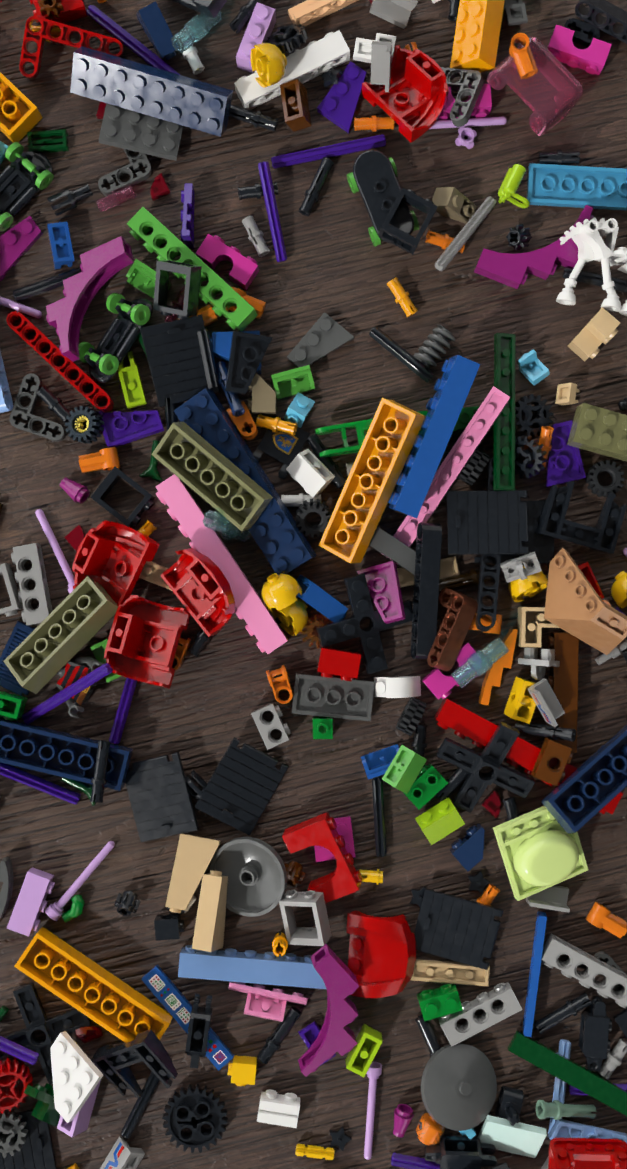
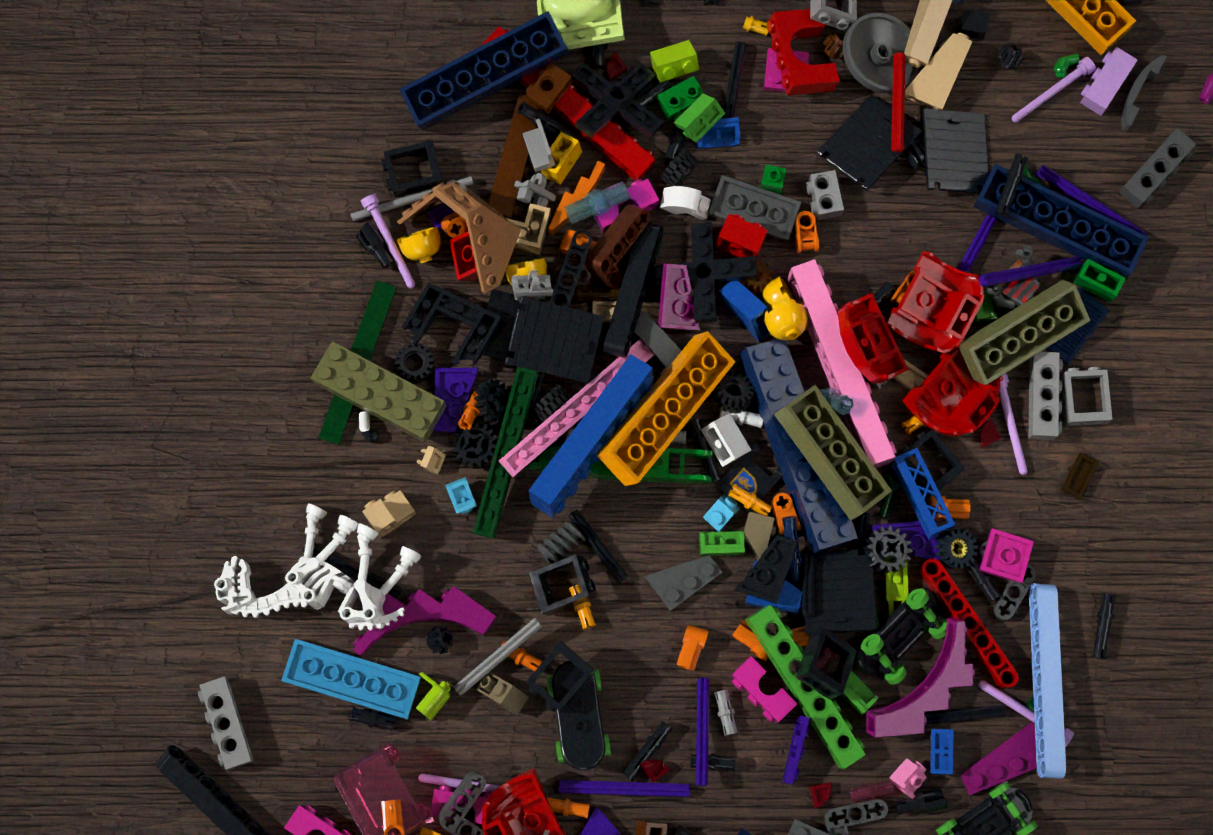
camera: 175 degrees left, 10 degrees down
(38, 427) = (1006, 555): none -> dark pink plate
(75, 490) = (979, 482): magenta cone -> none
(85, 215) = (909, 777): none -> bright pink brick
(129, 459) = (915, 497): none -> blue fence
(148, 399) = (880, 540): none -> black gear
(222, 829) = (898, 102): none -> red axle
(298, 286) = (693, 642): none -> orange piece
(305, 173) = (655, 769): none -> dark red tile
(439, 300) = (543, 592): none -> black window
(468, 132) = (467, 761): lavender plate -> none
(469, 848) = (650, 28): dark blue slope -> none

